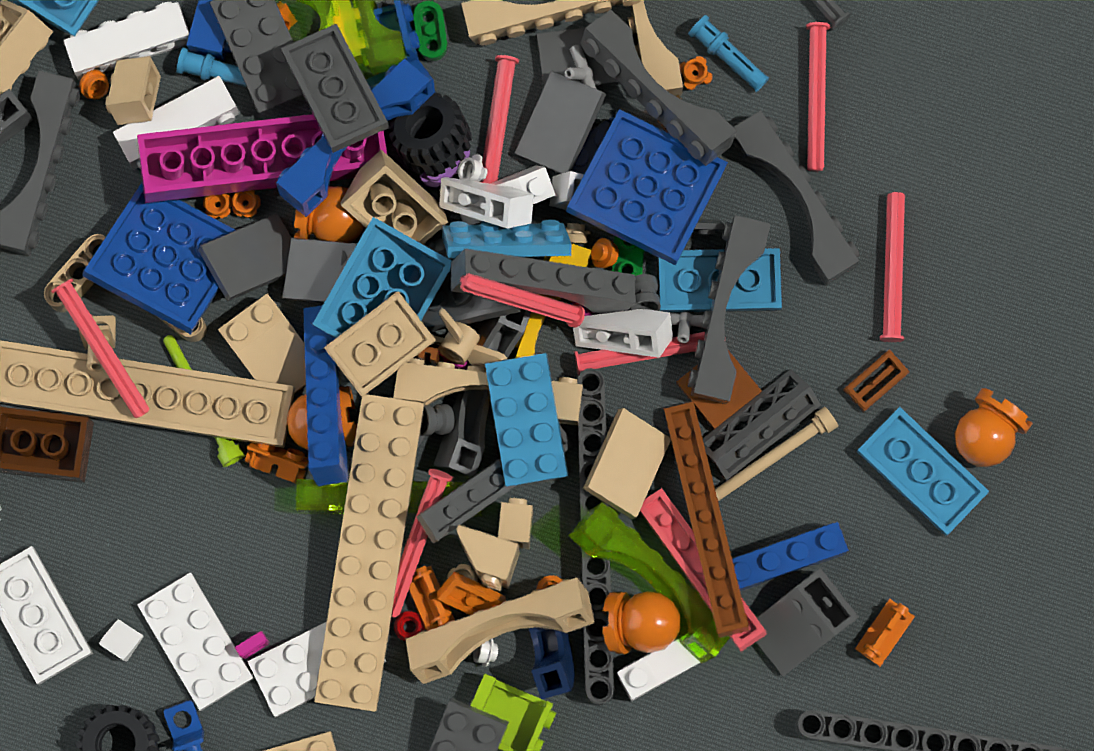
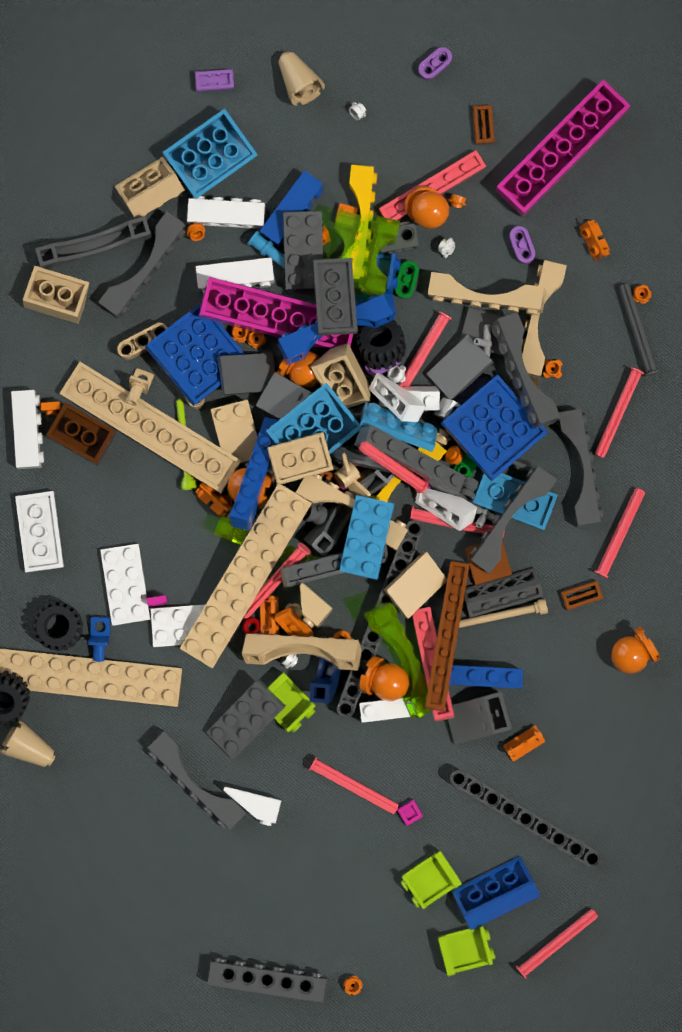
camera: 20 degrees right, 5 degrees up
(101, 348) = (138, 392): coral axle -> none
(121, 640) = (83, 566): white slope -> none
(133, 90) = (217, 246): tan brick -> none
(516, 522) = (336, 593): tan brick -> none
(718, 44) = (573, 357): dark azure pin -> none
(922, 471) = (585, 659): dark azure plate -> none

